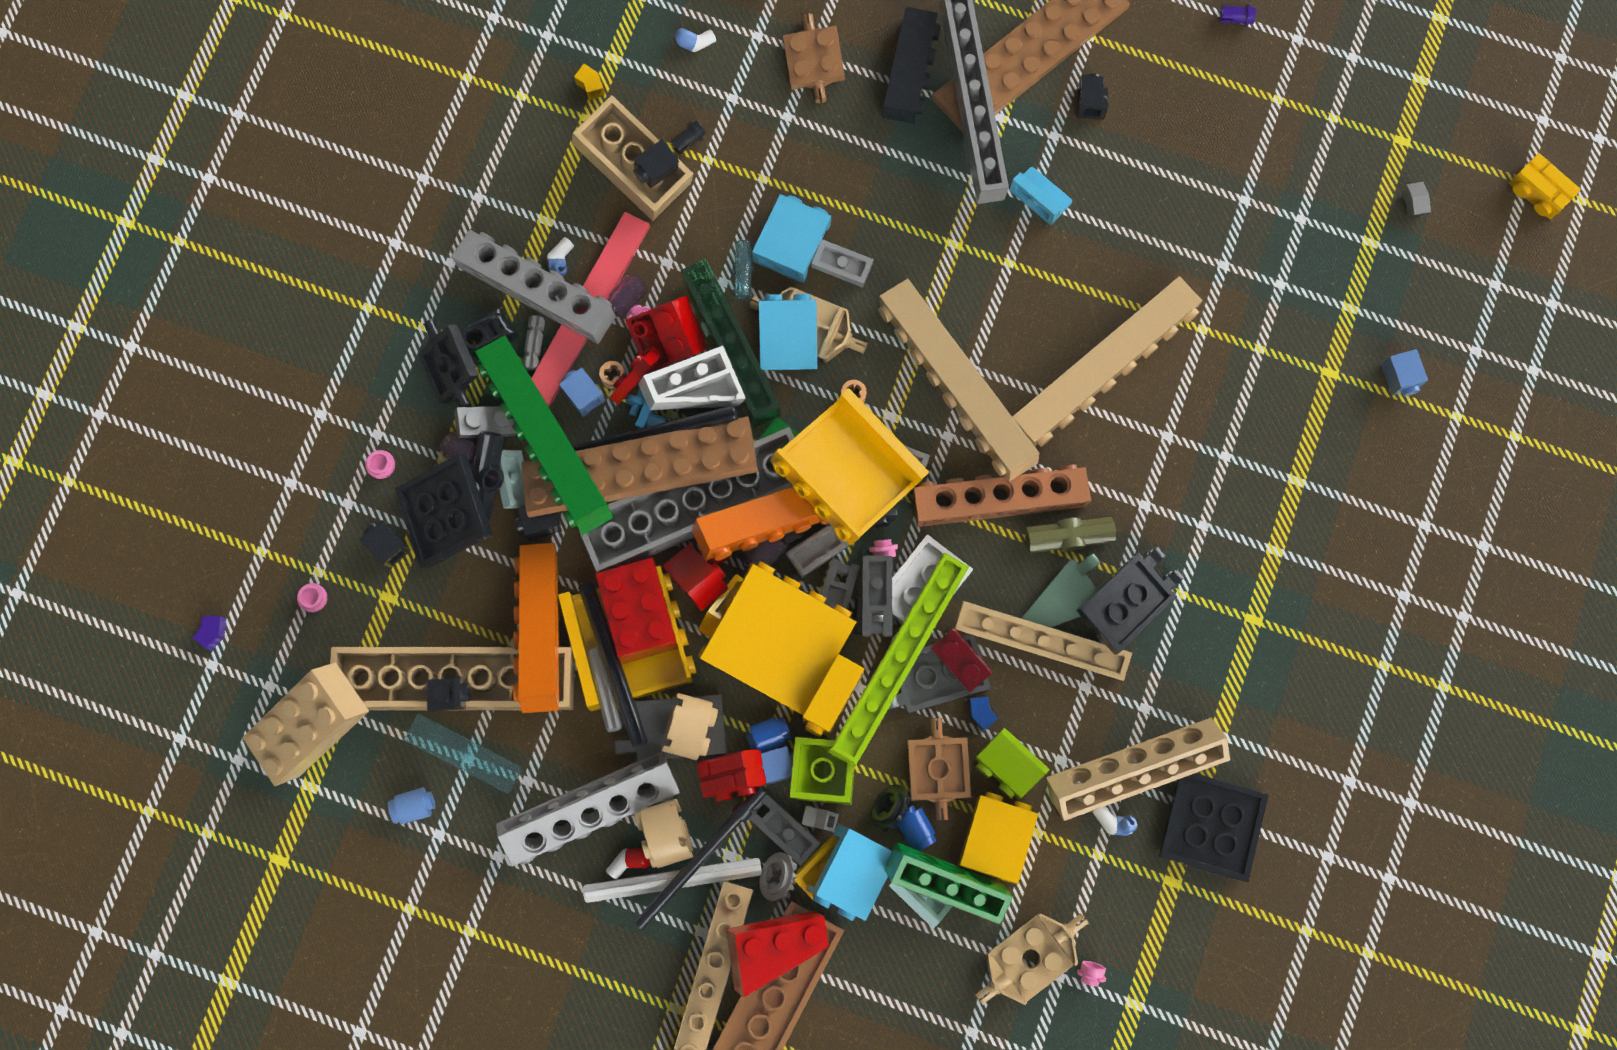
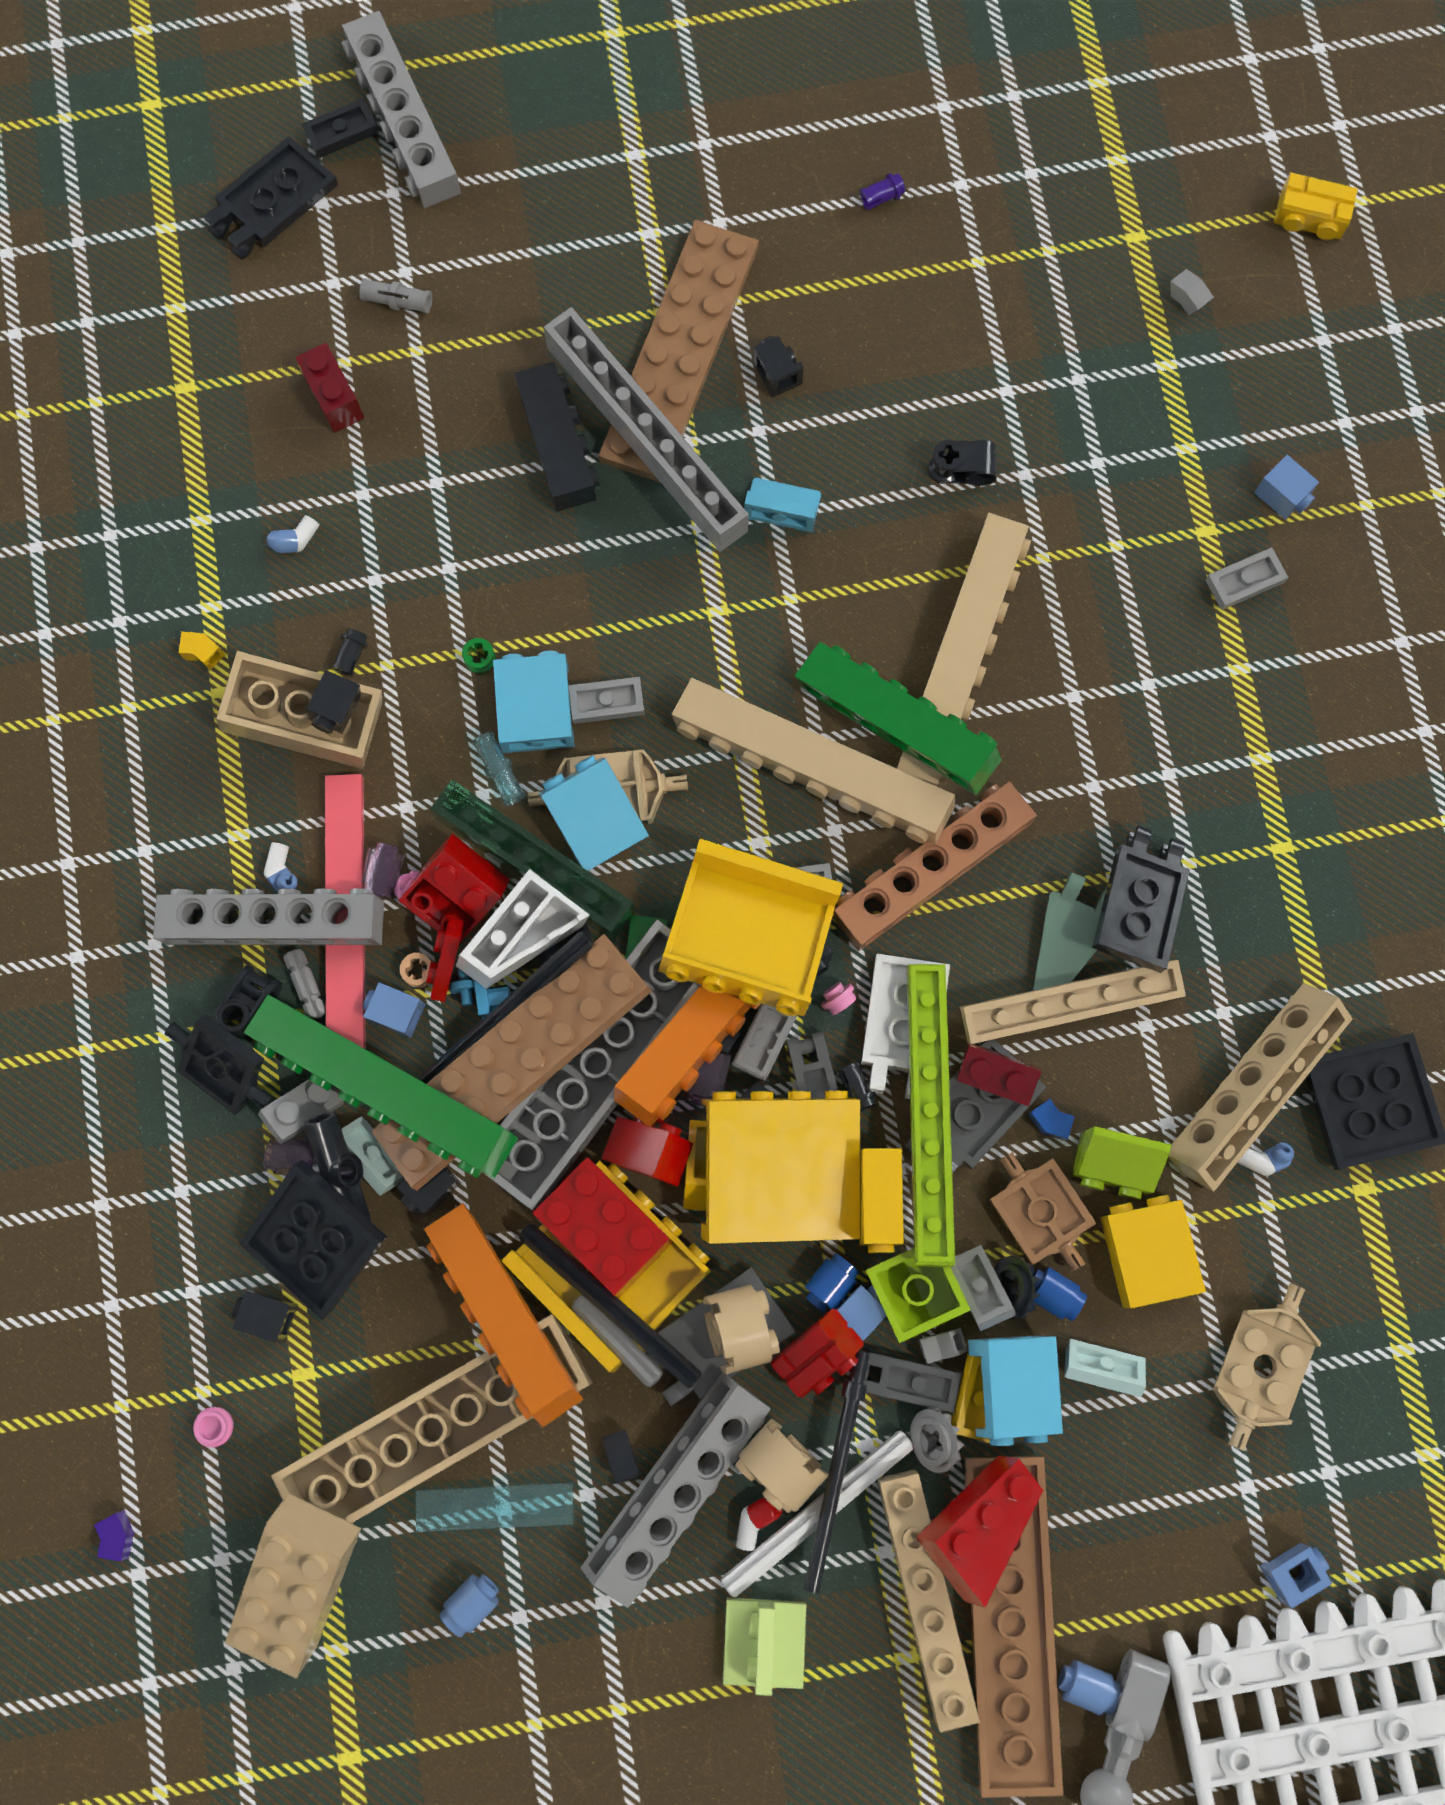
camera: 25 degrees left, 0 degrees up
(380, 464) = (205, 1225): bright pink plate -> none
(447, 694) = (441, 1452): black bracket -> none
(564, 767) = (621, 1456): none -> black piece
(588, 944) = (764, 1644): none -> yellowish green bracket
(773, 177) = (471, 646): none -> green bush
(814, 58) = (441, 485): medium nougat plate -> none
(855, 384) = (698, 829): light nougat bush -> none
(866, 794) = (982, 1288): none -> light grey plate
(877, 595) = (863, 1054): dark grey plate -> none
(948, 883) = (1130, 1337): green brick -> none
(1033, 382) = (899, 717): none -> green brick
(1070, 534) = (1033, 865): olive piece -> none
(1091, 973) = (1339, 1343): bright pink plate -> none
(1187, 234) = (966, 462): none -> black piece
(1337, 420) = (1246, 578): none -> light grey plate

